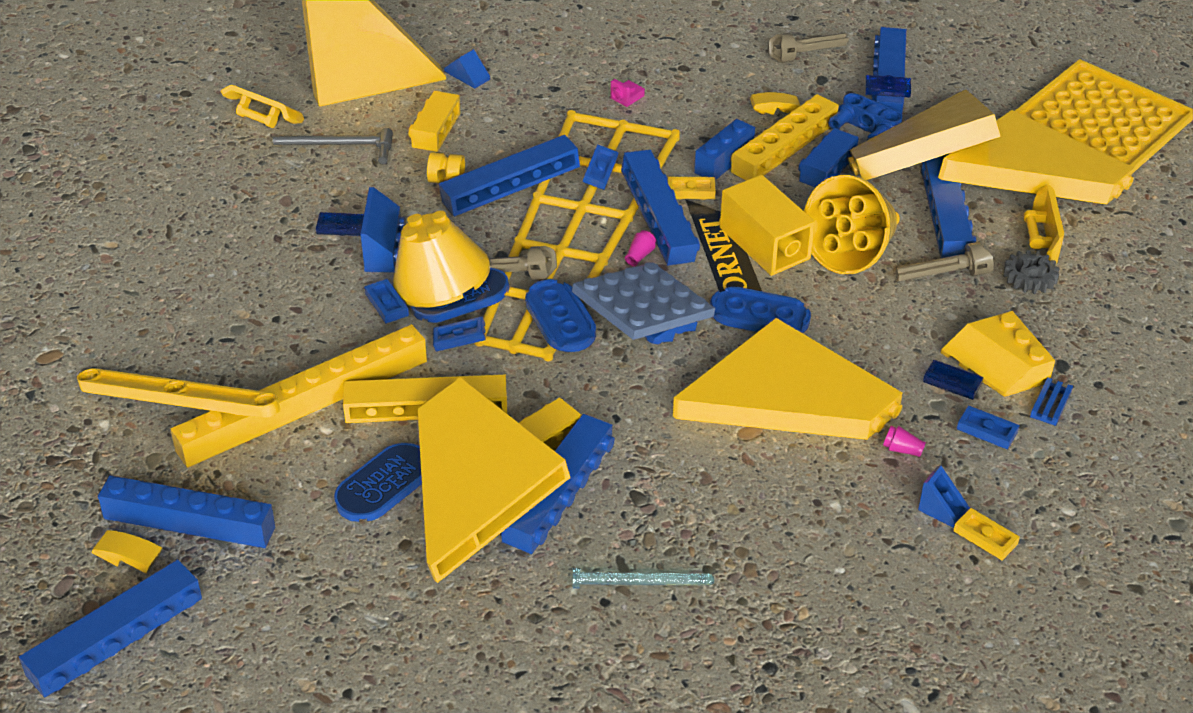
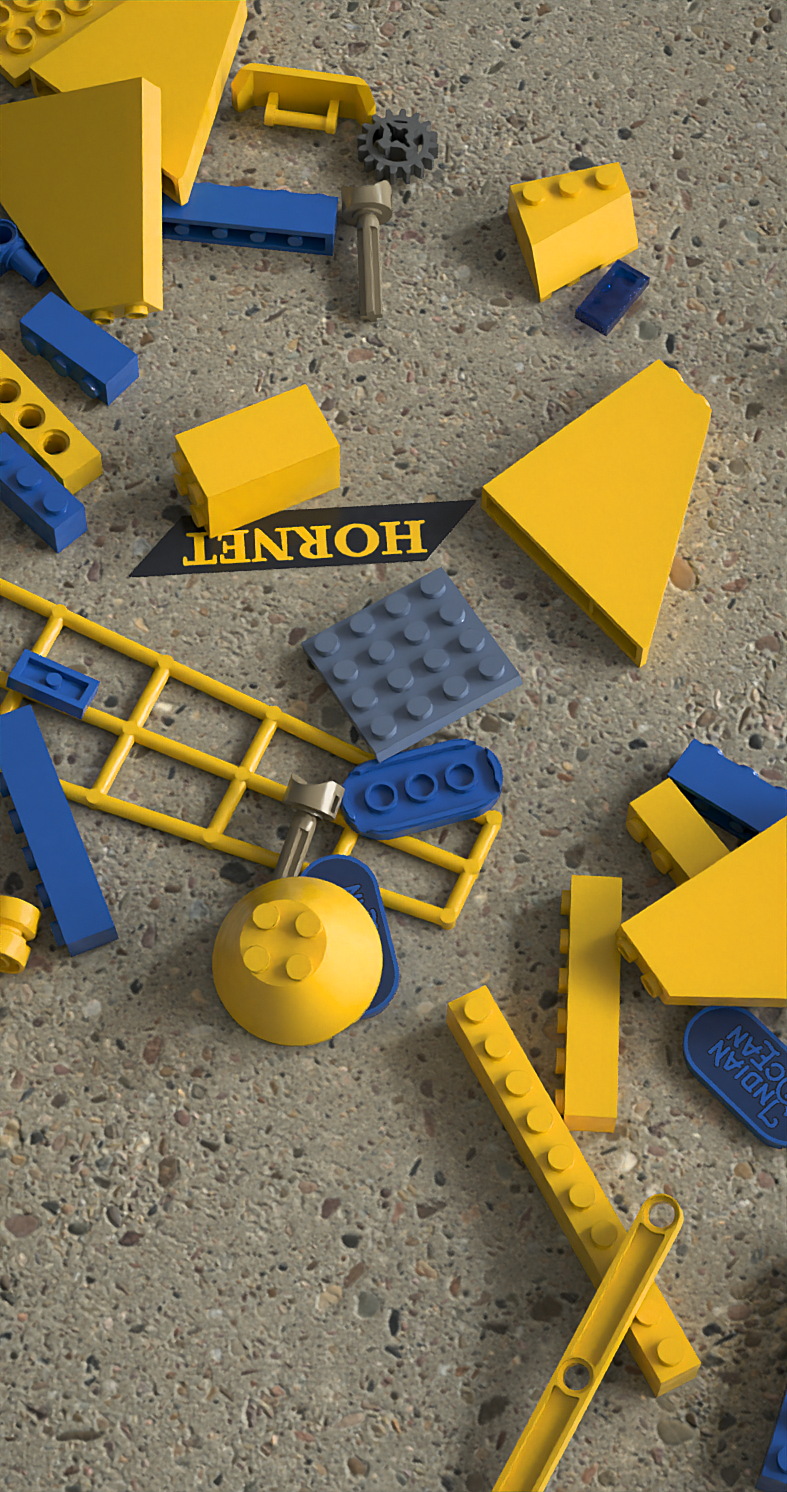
camera: 85 degrees left, 20 degrees up
(339, 224) = (124, 1121): clear blue plate -> none
(380, 232) = (182, 1050): blue slope -> none
(386, 301) = (344, 1053): blue plate -> none
(459, 334) = (440, 980): blue tile -> none
(641, 246) = (261, 655): dark pink cone -> none
(660, 207) = (175, 610): blue brick -> none
(693, 187) = (116, 560): yellow plate -> none
(756, 309) = (431, 513): blue tile -> none
(850, 223) = (307, 331): yellow cone -> none
(903, 442) = (730, 387): dark pink cone -> none
(988, 427) = (711, 278): blue plate -> none
(1056, 388) = (664, 190): blue tile -> none

